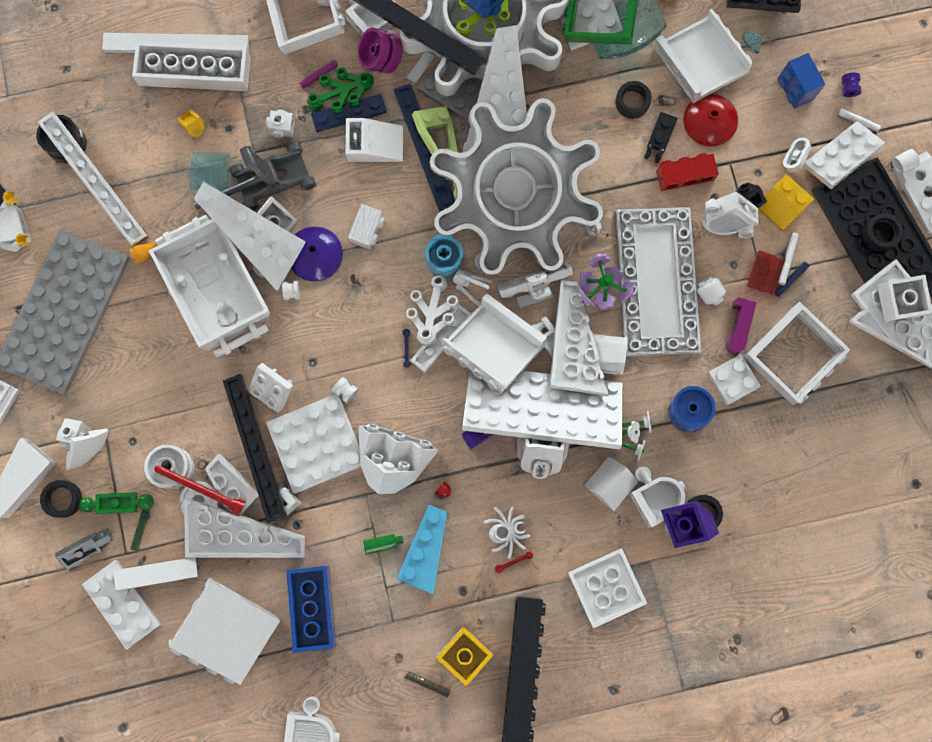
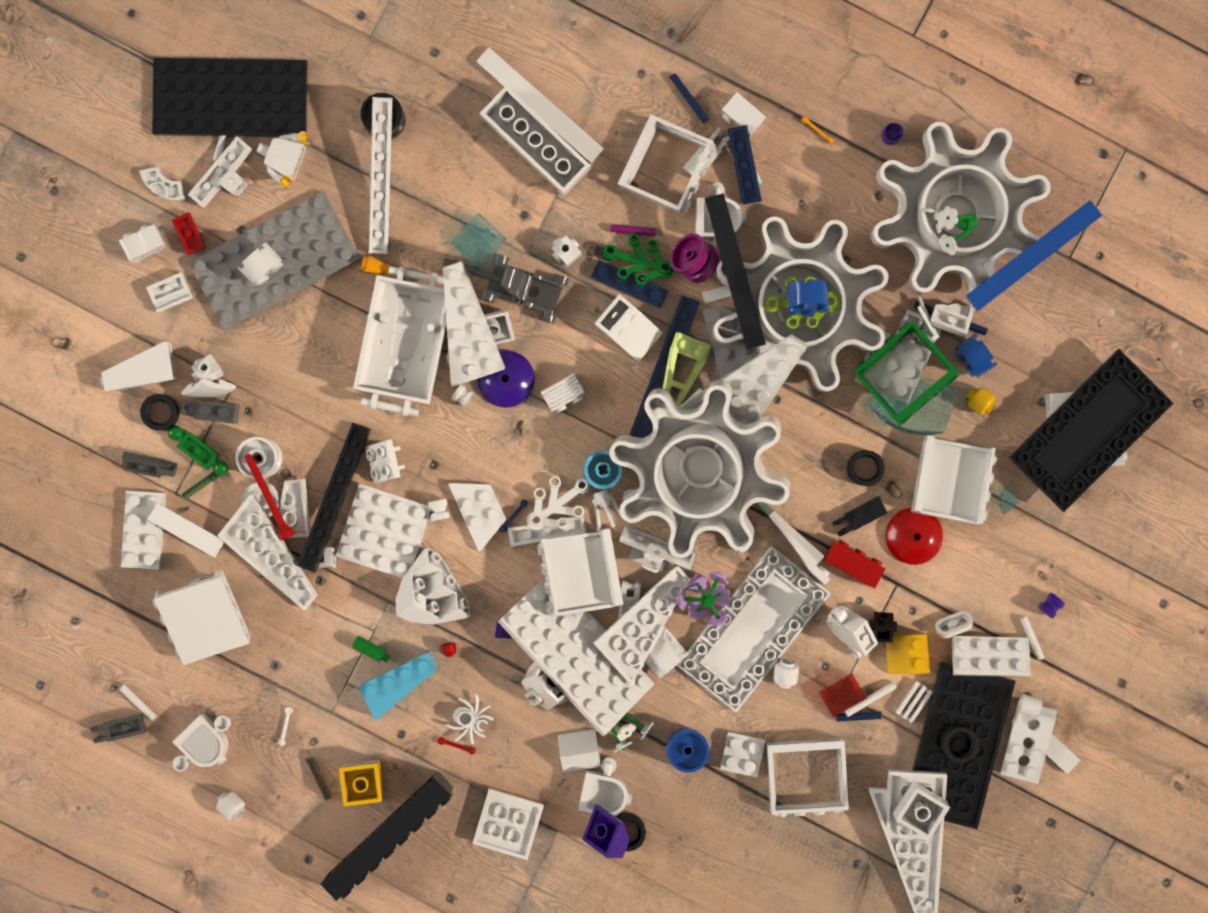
camera: 45 degrees right, 10 degrees up
(50, 316) = (260, 264): none -> white brick
(103, 462) = (212, 411): none -> dark grey hinge
(192, 123) = (496, 188): yellow tile -> none
(311, 609) = (278, 653): blue brick -> none
(373, 680) = (288, 710): none -> white hinge
(376, 365) = (479, 509): none -> white wing
(645, 192) = (806, 551): none -> white plate
(742, 324) = (784, 720): magenta leg -> none
(801, 80) = (1010, 569): blue brick -> none
(830, 248) = (919, 707): none -> white tile

